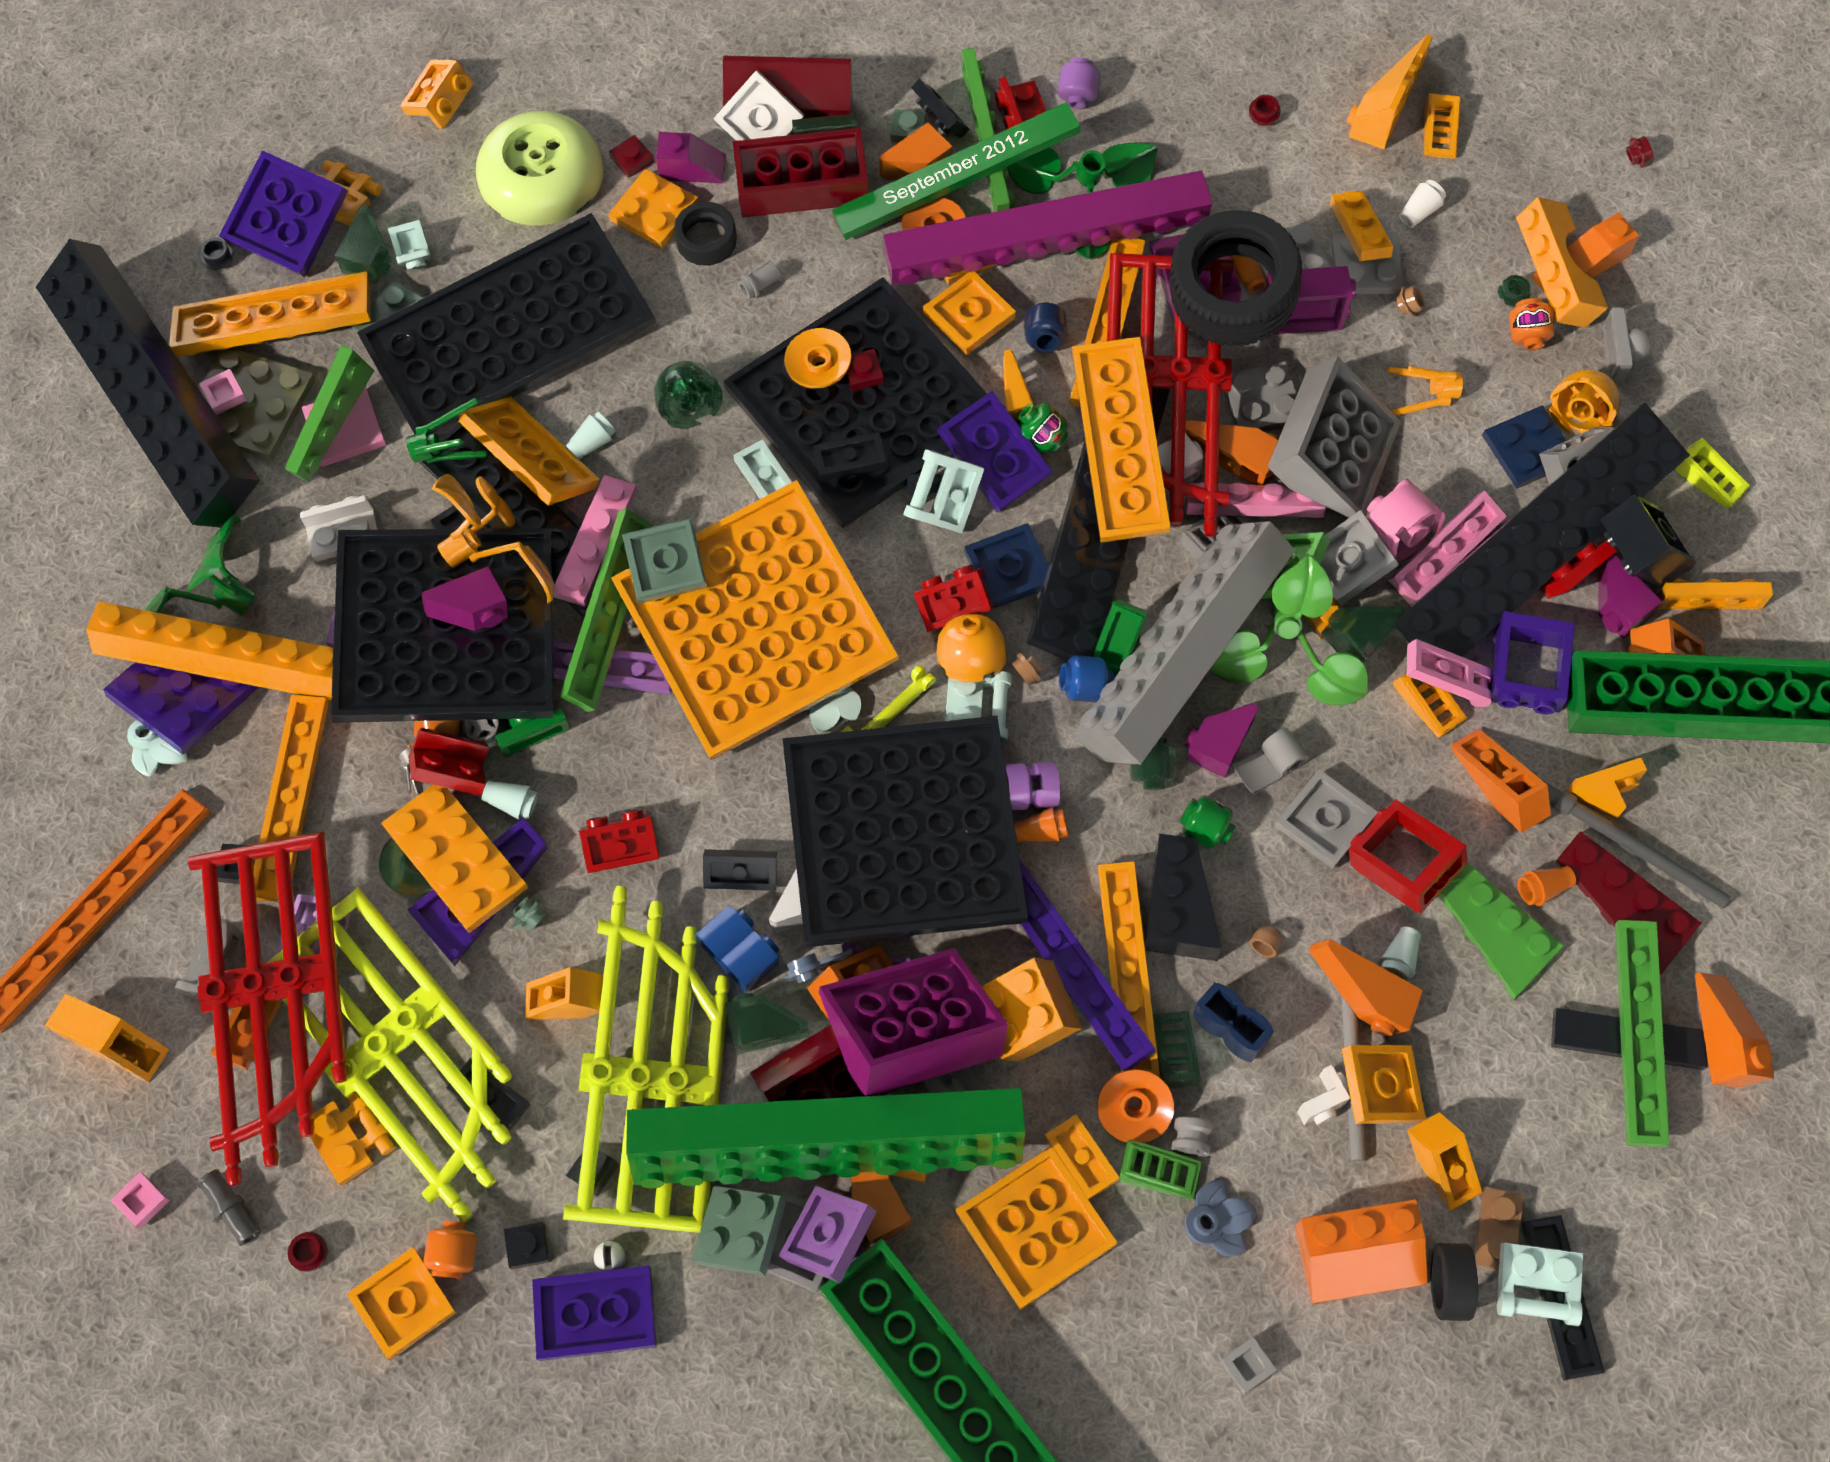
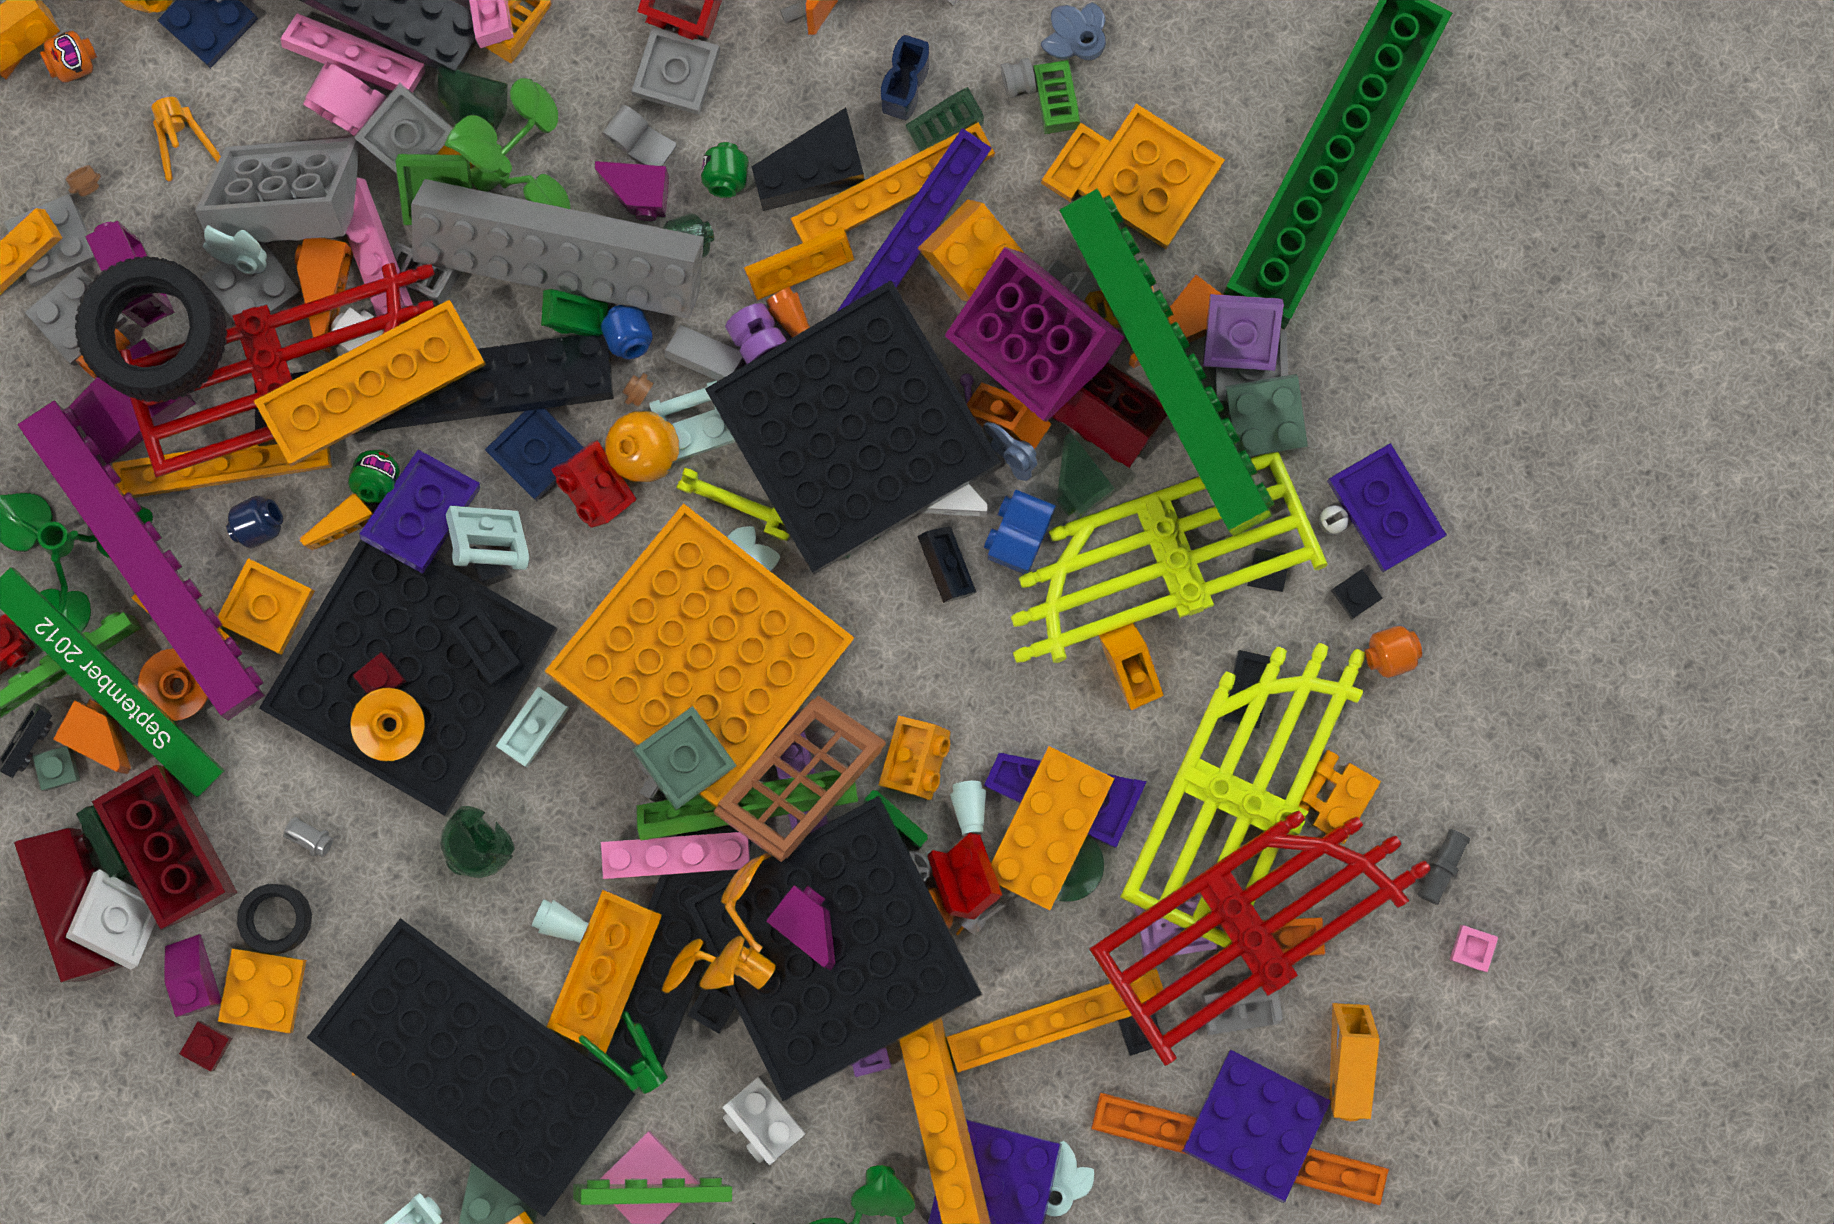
camera: 110 degrees left, 15 degrees up
(100, 927) = (1256, 1126): none -> dark purple plate
(307, 1251) = (1447, 779): dark red plate -> none
(401, 1303) = (1453, 673): light orange plate -> none
(528, 912) = (1069, 736): sand green plate -> none
(543, 193) = (298, 1119): yellowish green brick -> none
(576, 593) = (755, 828): none -> nougat piece
(578, 772) = (915, 757): none -> light orange bracket
(618, 841) = (965, 688): red bracket -> none
(1036, 736) = (703, 354): none -> light grey tile
(1087, 854) = (799, 263): none -> light orange tile
(1138, 1123) = (1013, 132): orange dish -> none
(1269, 936) = (813, 80): medium nougat hinge -> none
(1283, 392) = (238, 250): none -> light aqua plate
(1514, 283) = (26, 81): clear green plate -> none

